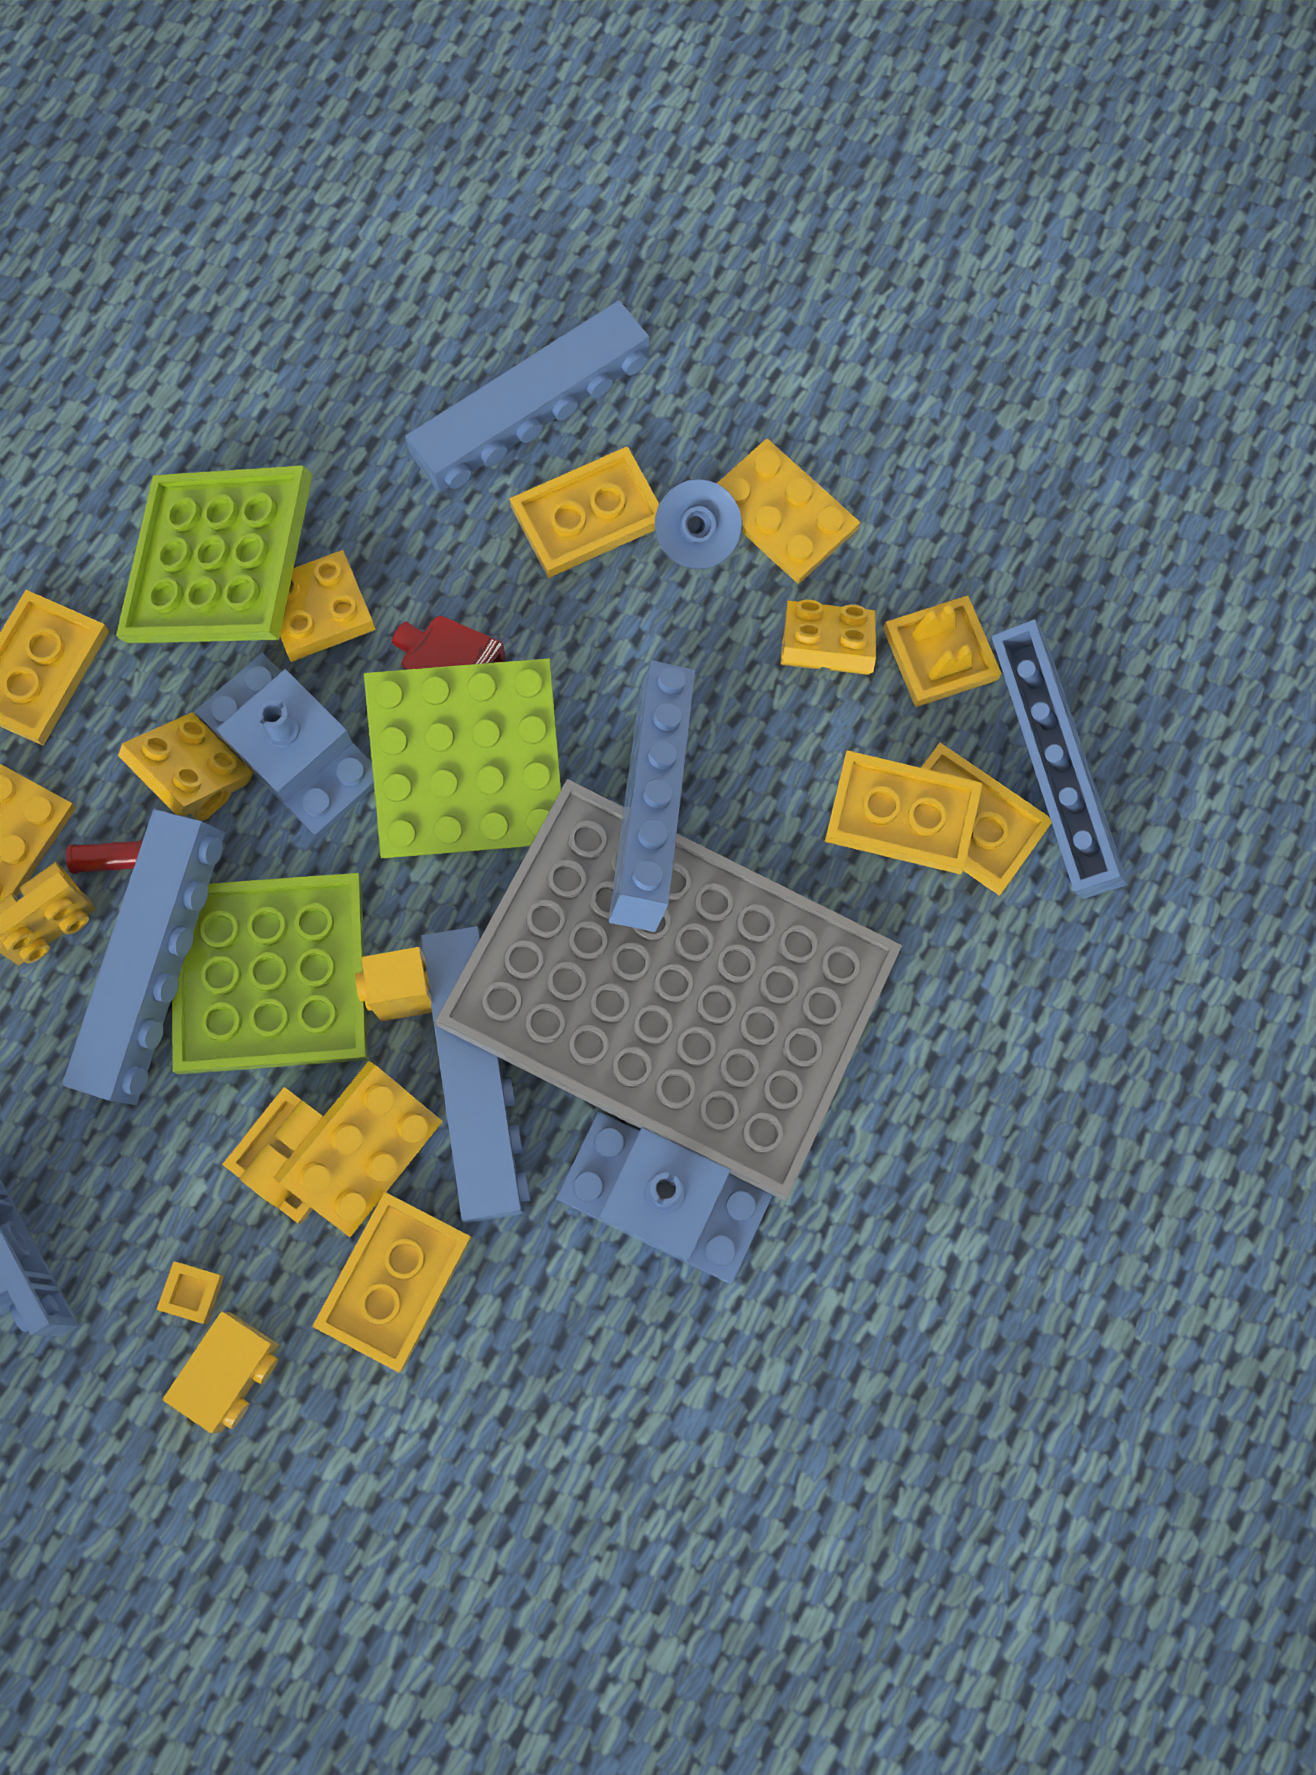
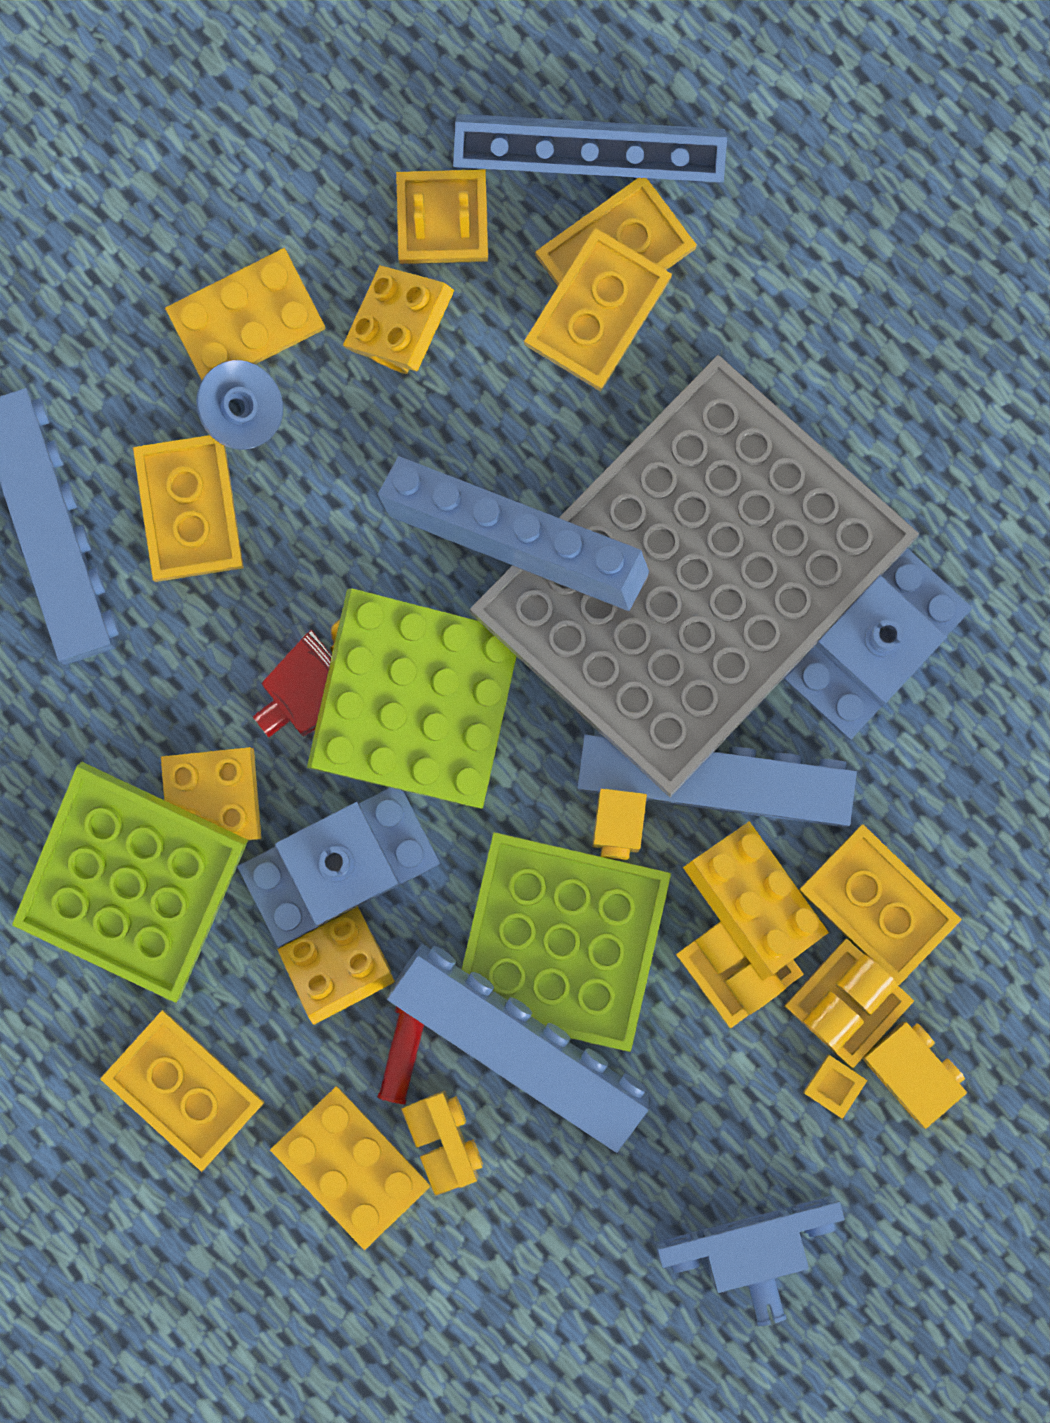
camera: 70 degrees left, 10 degrees up
(279, 1280) = (849, 1003): none -> yellow plate

